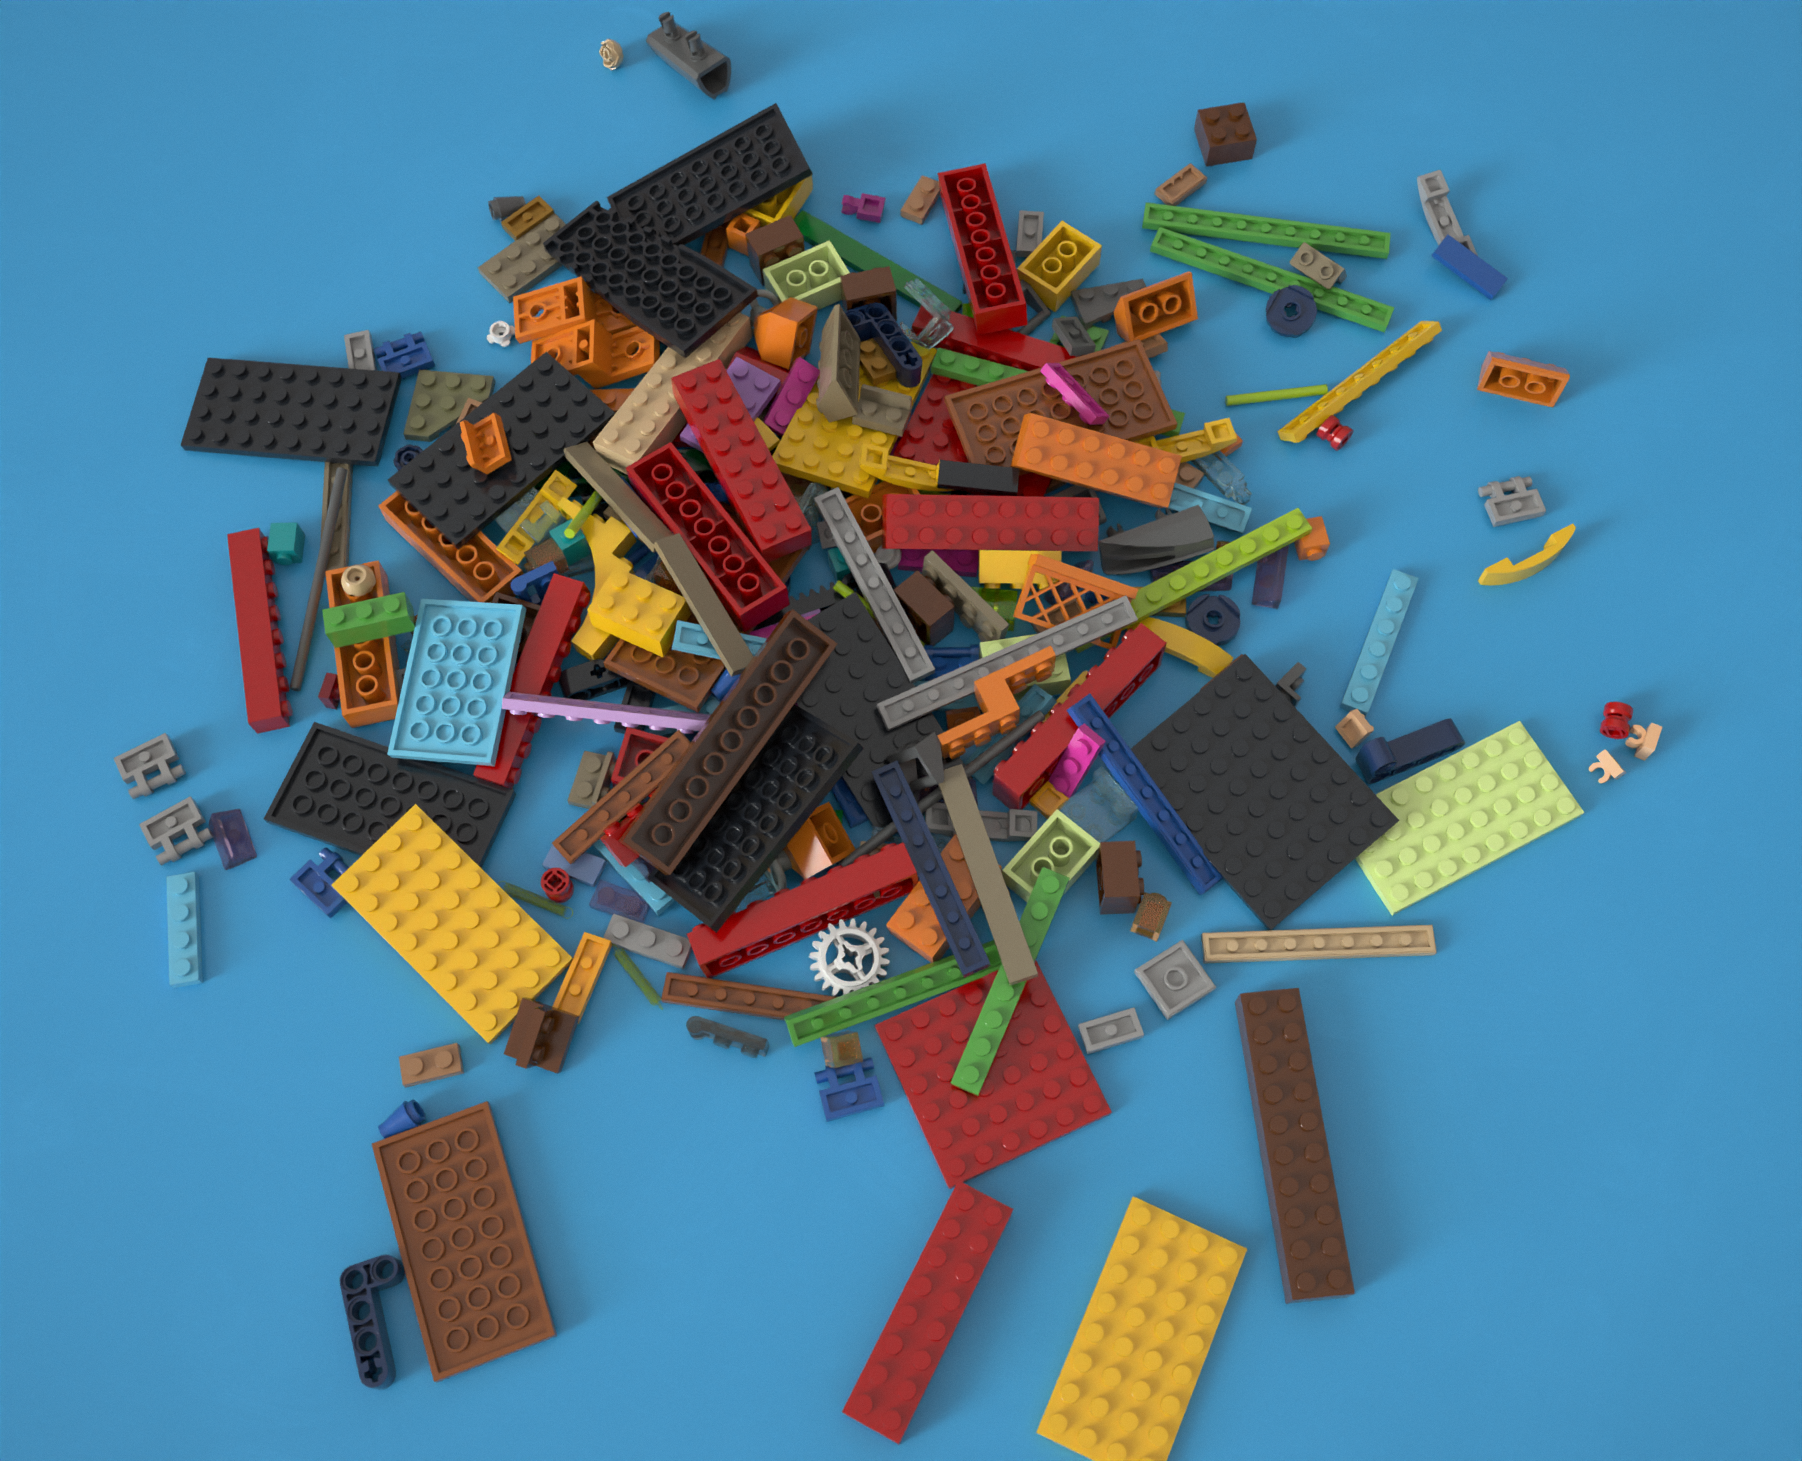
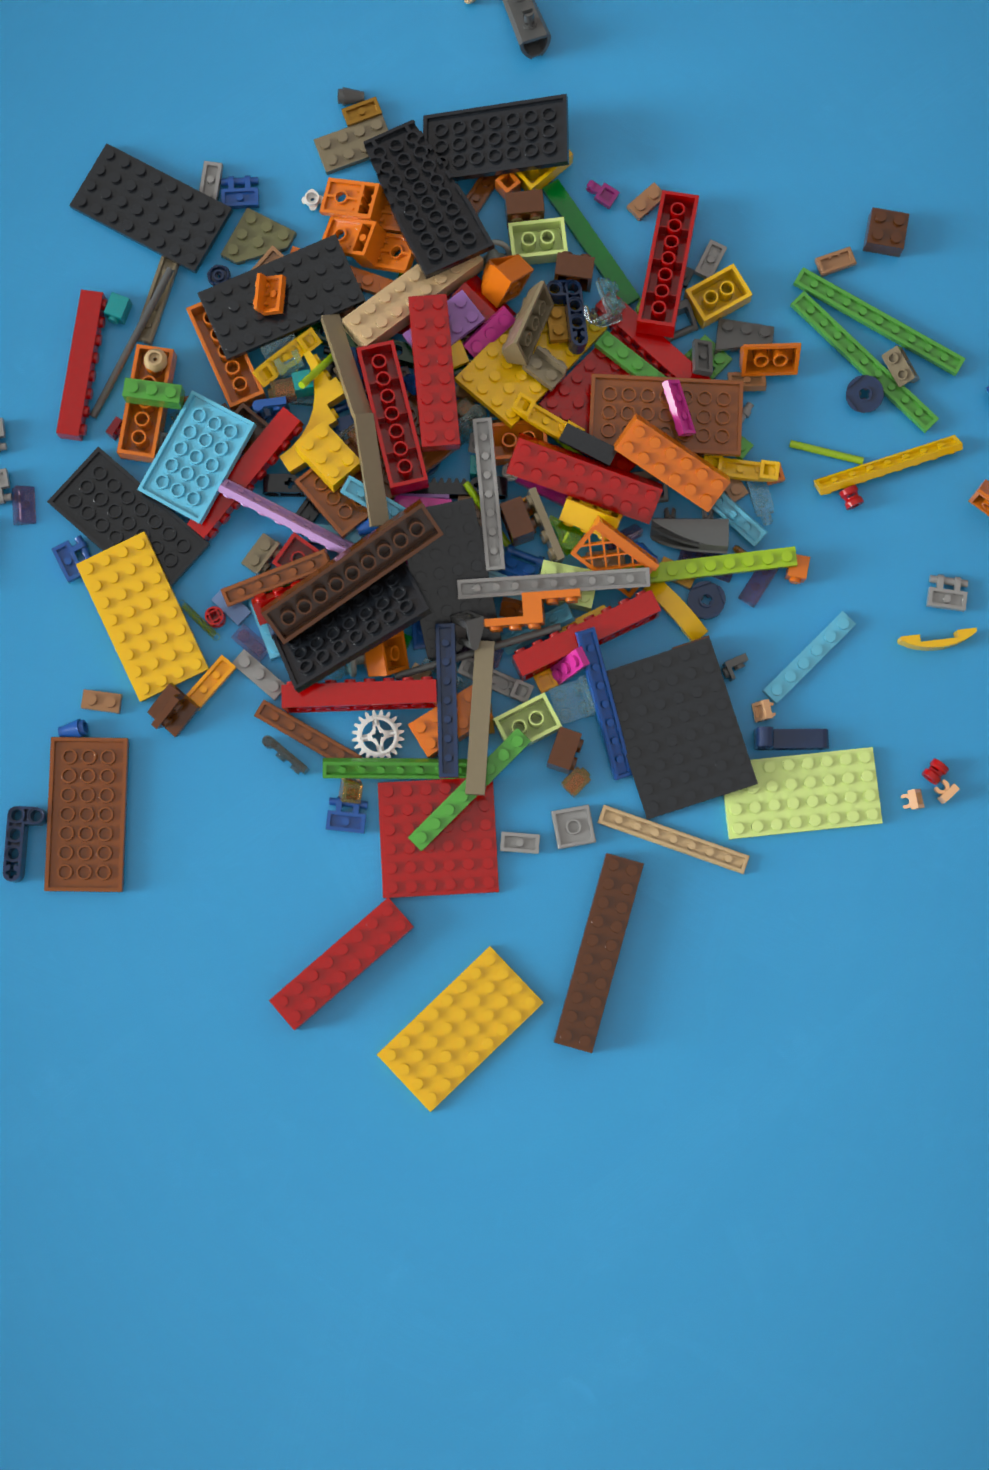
camera: 20 degrees right, 15 degrees up
(650, 996) = (245, 692): lime piece -> none

